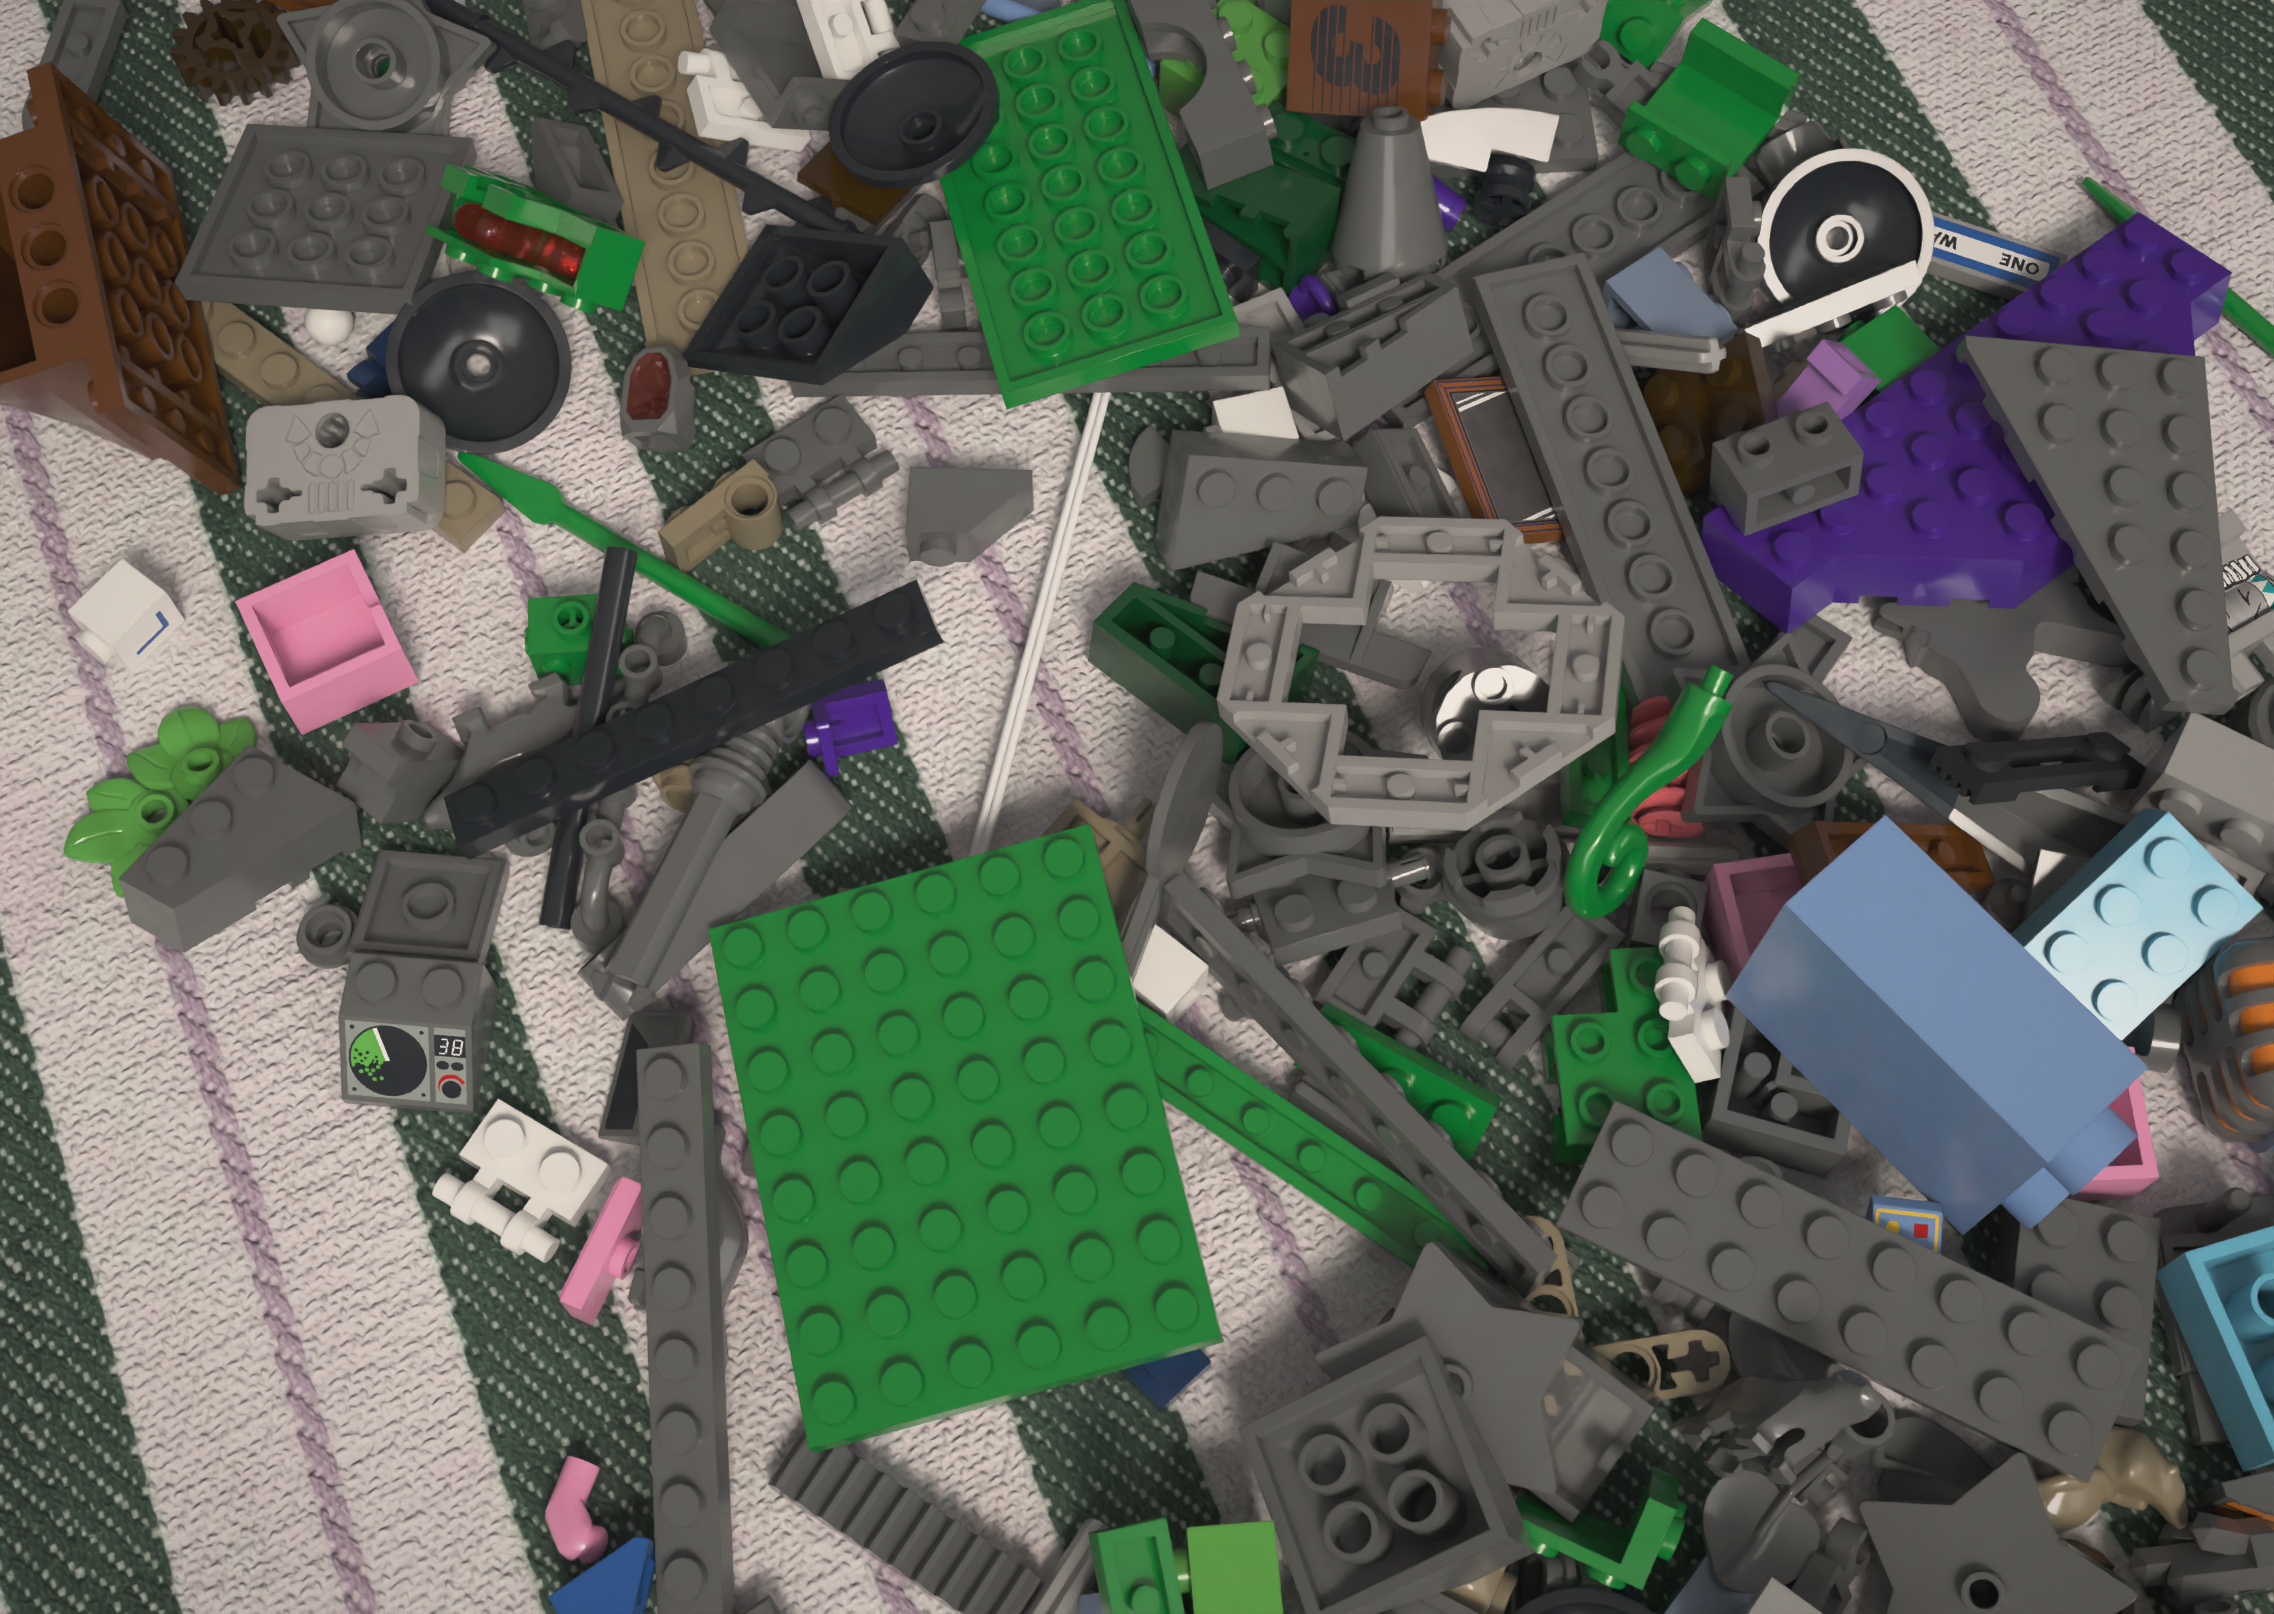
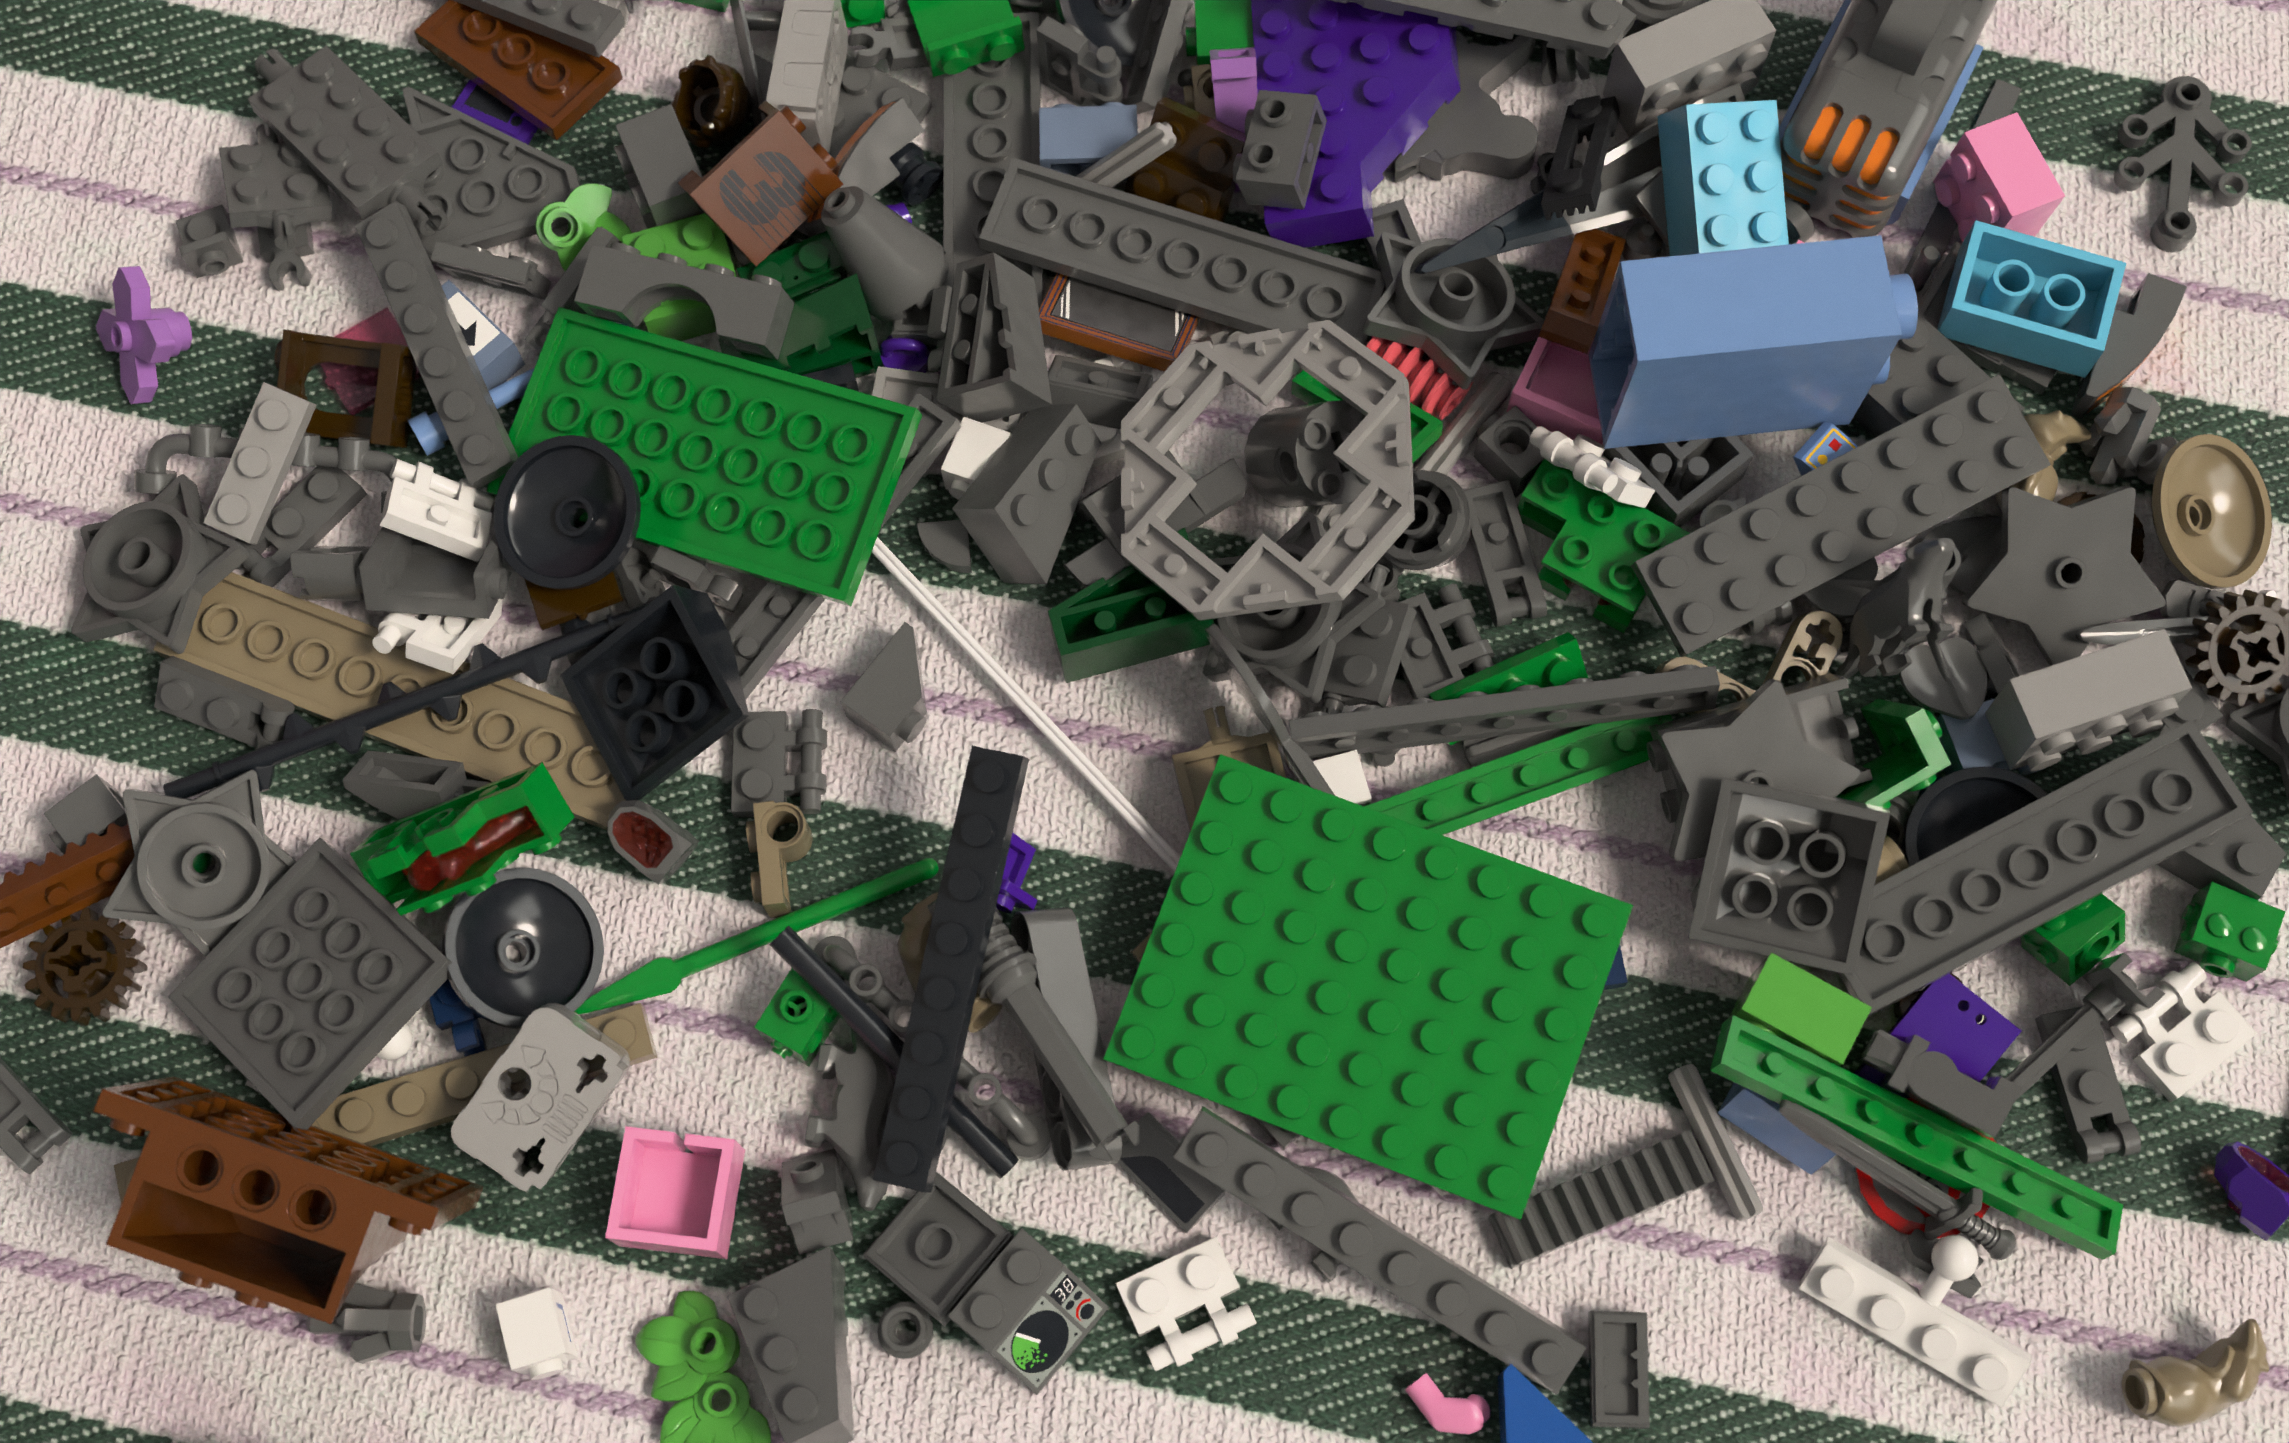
camera: 50 degrees left, 5 degrees up
(66, 494) = (389, 1322): none -> dark grey rock
(607, 1252) = (1282, 1272): bright pink plate -> none
(1622, 843) = (1429, 363): green plant -> none

